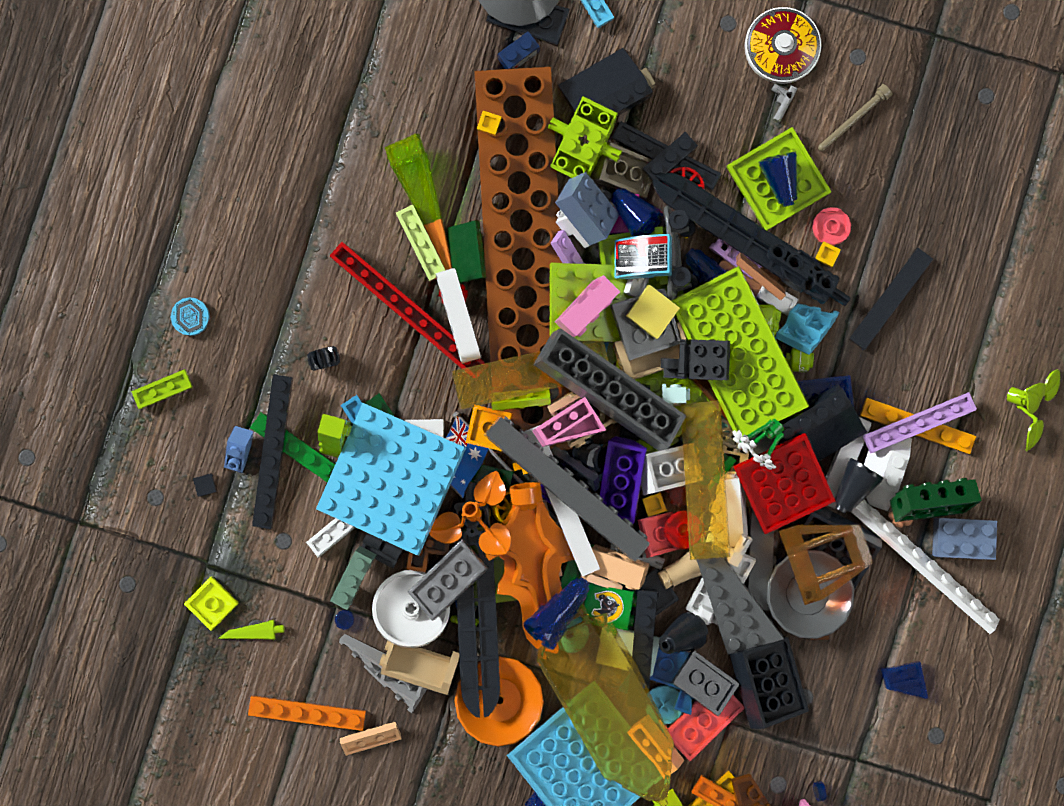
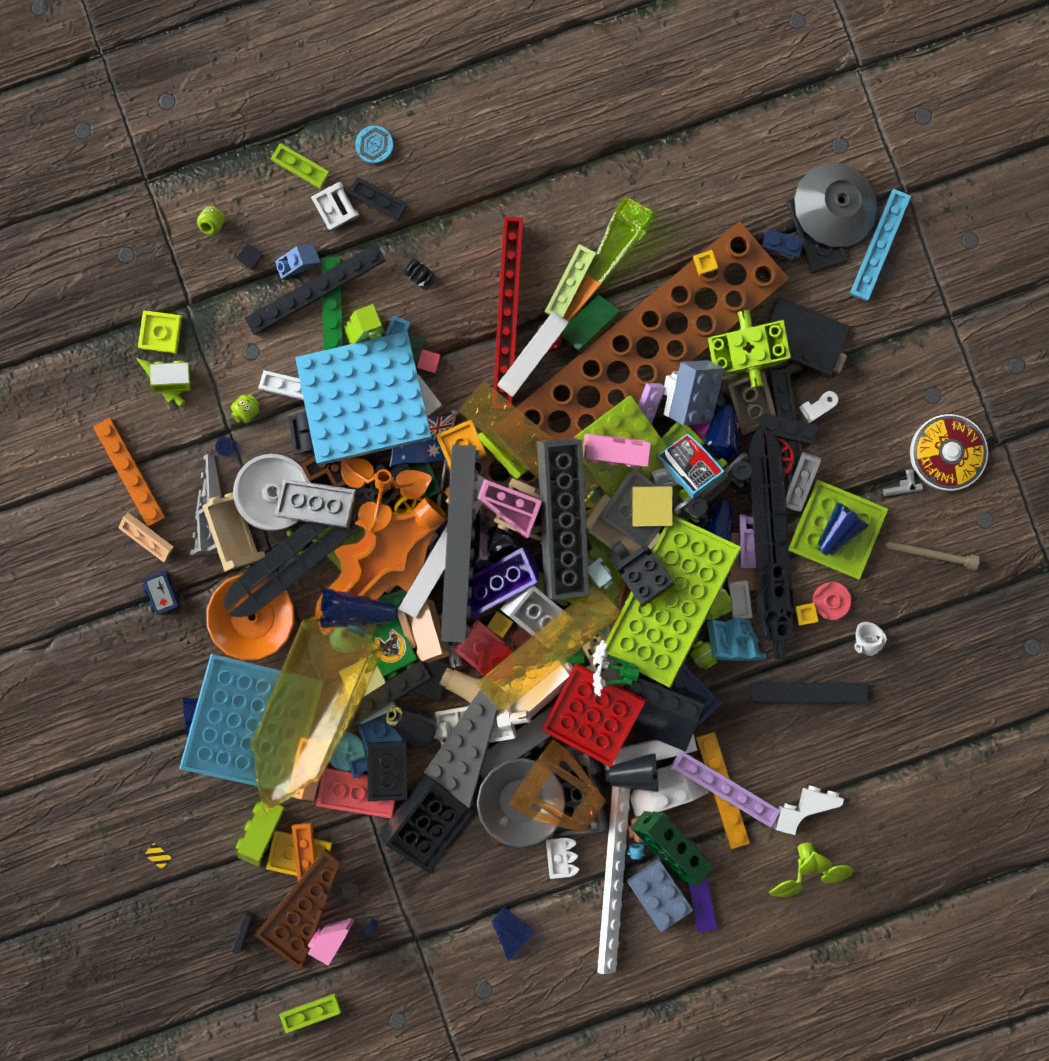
camera: 50 degrees right, 0 degrees up
(152, 494) = (211, 220): none -> lime head
(214, 391) = (329, 210): none -> white plate
(236, 346) = (377, 199): none -> black plate
(254, 622) = (169, 377): none -> white brick
(326, 580) = (245, 408): none -> lime head
(353, 577) = (260, 427): sand green arch -> none
(399, 404) = (428, 361): none -> coral tile
(425, 759) = (161, 593): none -> brick
(671, 119) = (825, 403): none -> white leg
(719, 178) = (802, 481): none -> light grey hinge
(760, 276) = (746, 571): nougat tile -> none
(876, 596) = (559, 858): none -> white plate
(884, 221) = (868, 640): none -> white helmet
(915, 531) = (636, 851): none -> medium azure plate
(979, 363) = (810, 802): none -> white arch
(999, 511) = (702, 906): none -> dark purple tile

